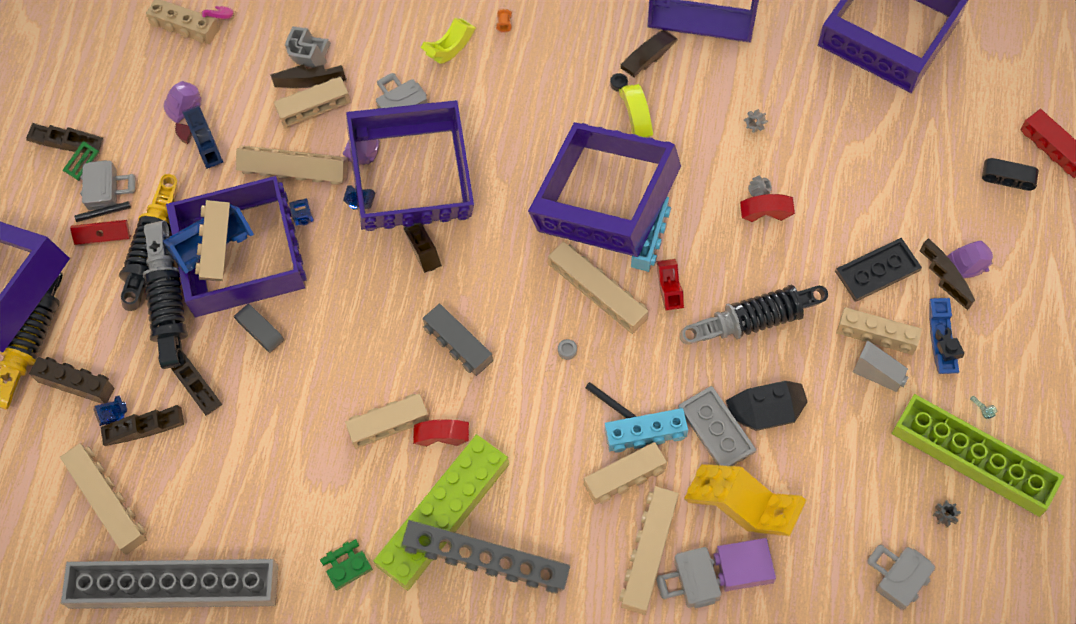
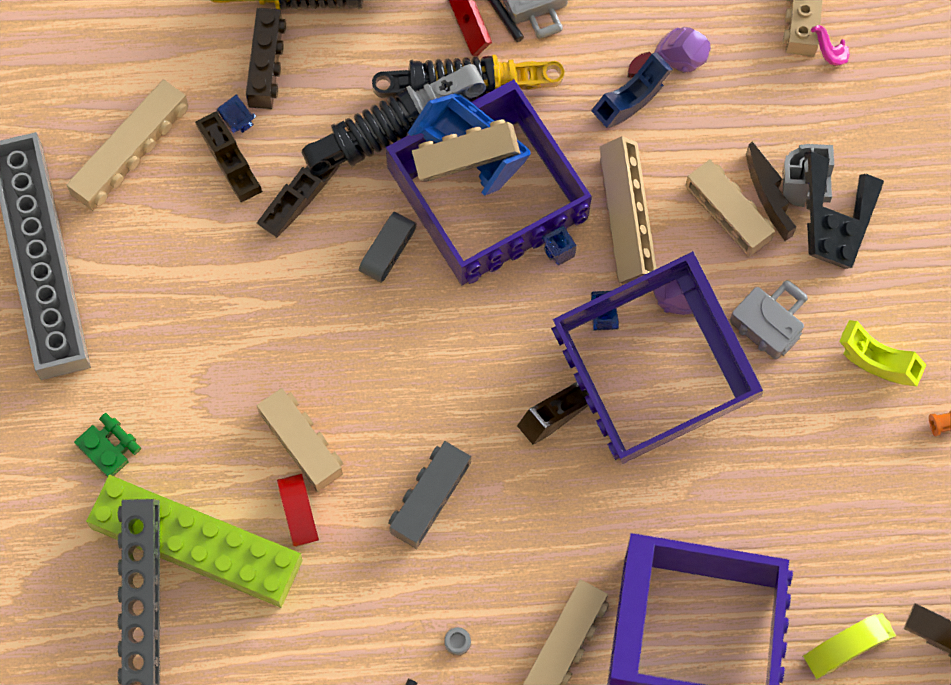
camera: 70 degrees right, 5 degrees up
(352, 43) = (832, 234): none -> black wing
(618, 81) = (896, 610): black tile -> none

